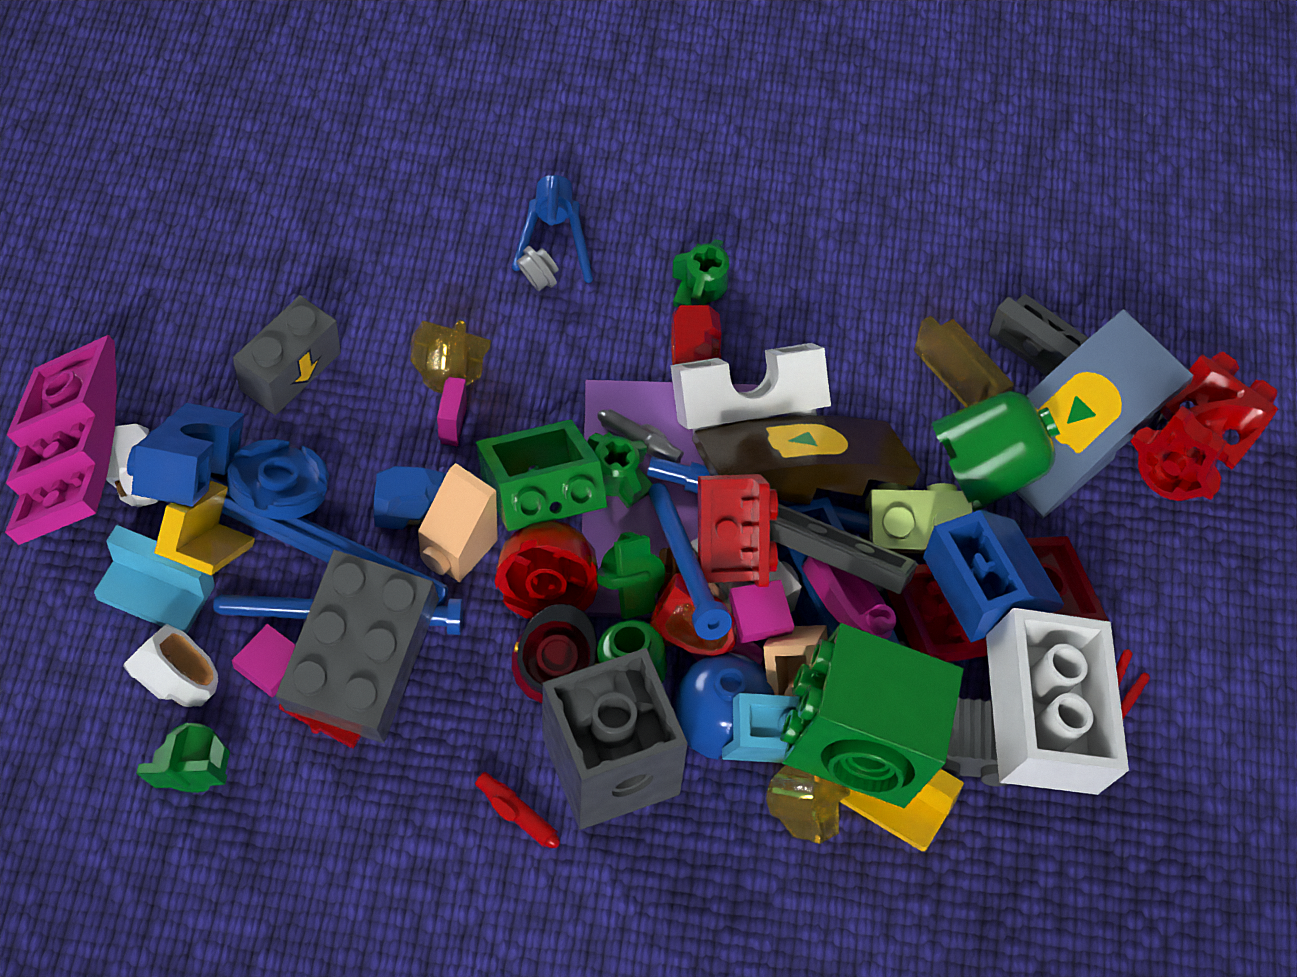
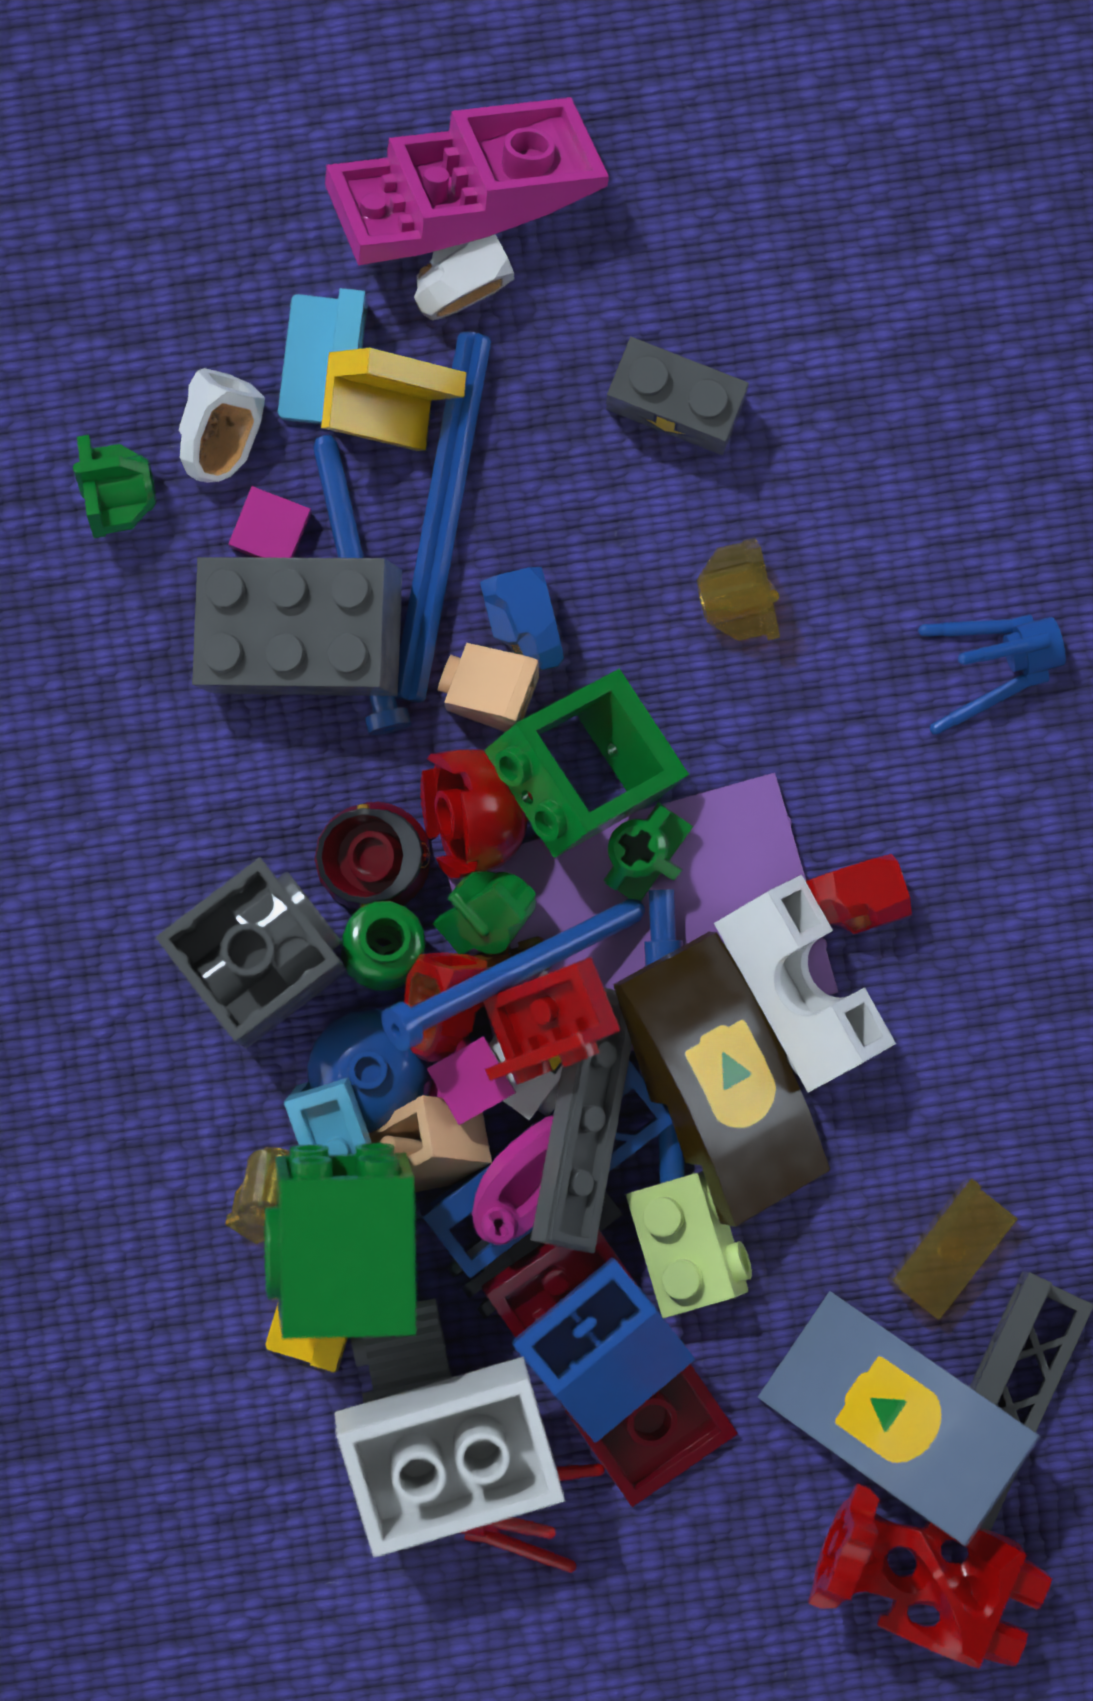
camera: 80 degrees right, 25 degrees up
(183, 452) = (432, 333): blue arch -> none
(277, 479) = (501, 449): blue tile -> none
(452, 411) = (663, 624): dark pink tile -> none
(512, 808) = (170, 867): red piece -> none
(538, 268) = (917, 660): light grey plate -> none
(654, 439) = (706, 869): flat silver piece -> none
(702, 273) = (978, 876): green piece -> none
(998, 446) = (800, 1312): green cylinder -> none

